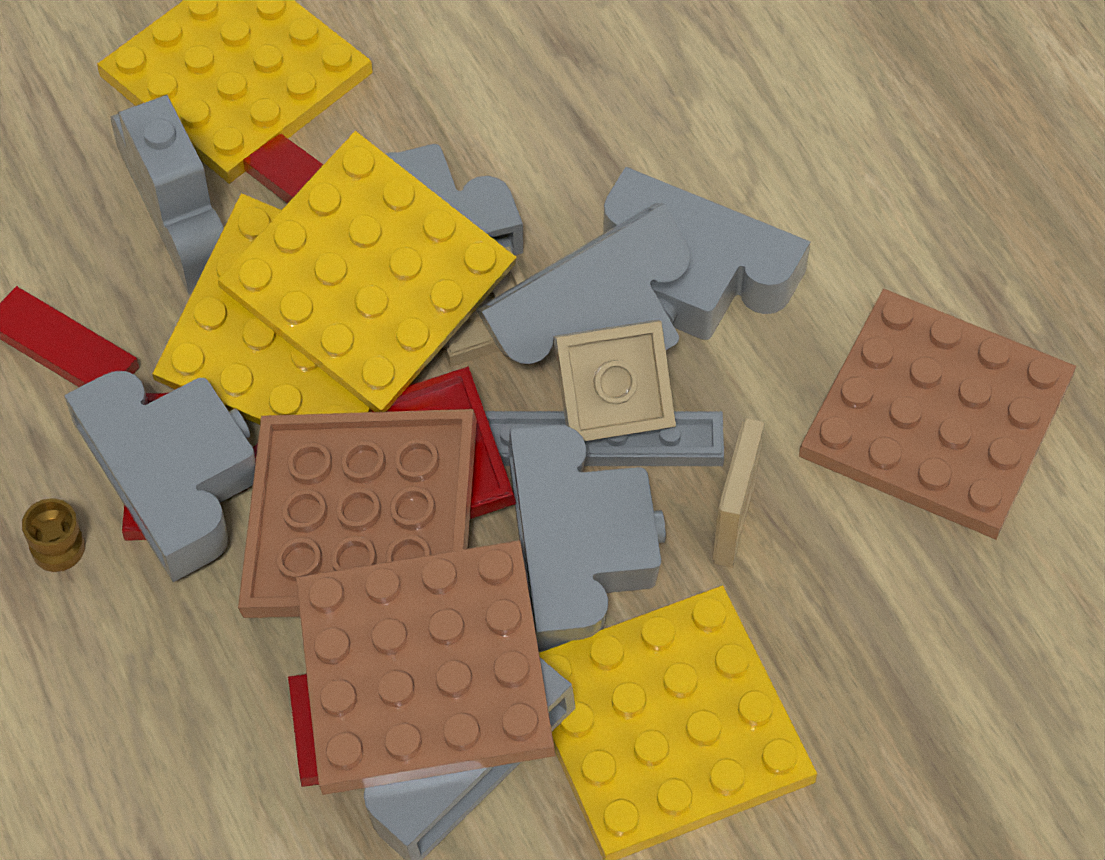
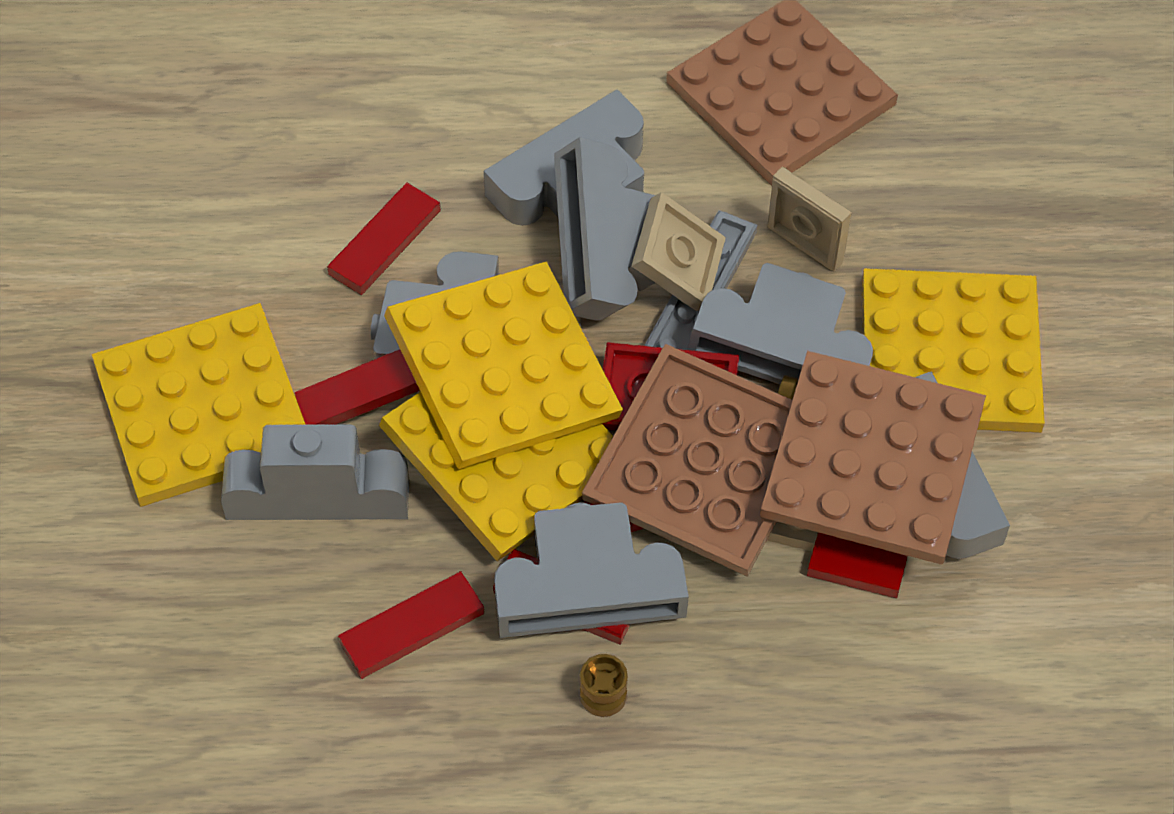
camera: 65 degrees left, 0 degrees up
(512, 130) = (383, 238): none -> red tile

